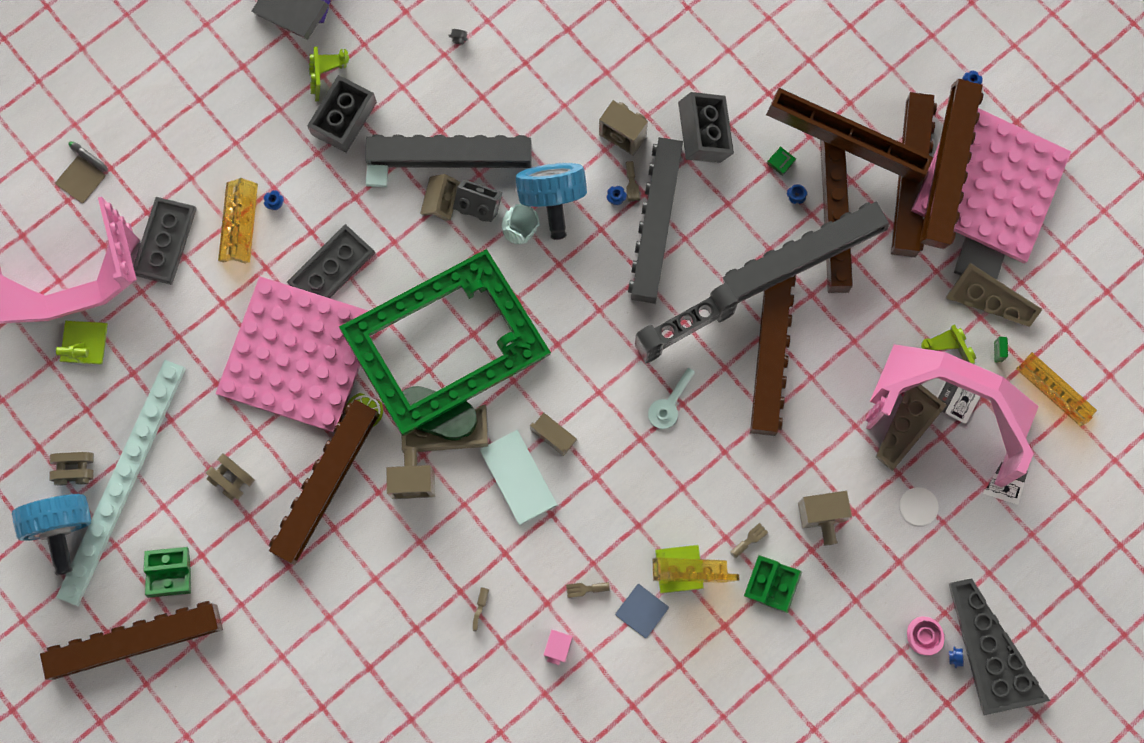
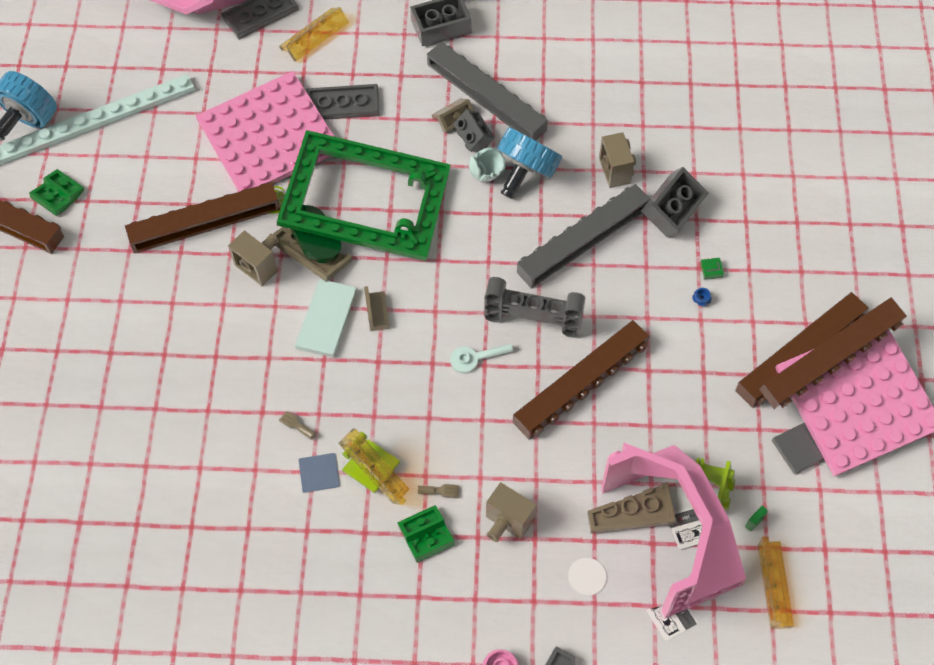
camera: 40 degrees right, 15 degrees down
(80, 476) = (68, 96): dark tan brick -> none
(83, 342) = (152, 28): lime plate -> none
(216, 477) = (143, 162): dark tan brick -> none
(277, 204) = (348, 38): blue plate -> none
(377, 175) = (427, 72): light aqua tile -> none
(458, 36) = (563, 32): dark grey plate -> none
(481, 603) = (212, 377): dark tan piece -> none
(557, 647) = (238, 442): bright pink brick -> none
(616, 190) = (571, 205): blue plate -> none
(632, 188) = (587, 207): dark tan piece -> none
(807, 251) = (665, 328): dark grey brick -> none
(835, 205) = (719, 327): reddish brown brick -> none
(849, 136) = (772, 278): reddish brown brick -> none
(973, 75) = (911, 329): blue plate -> none
(988, 294) = (783, 473): dark tan wing -> none

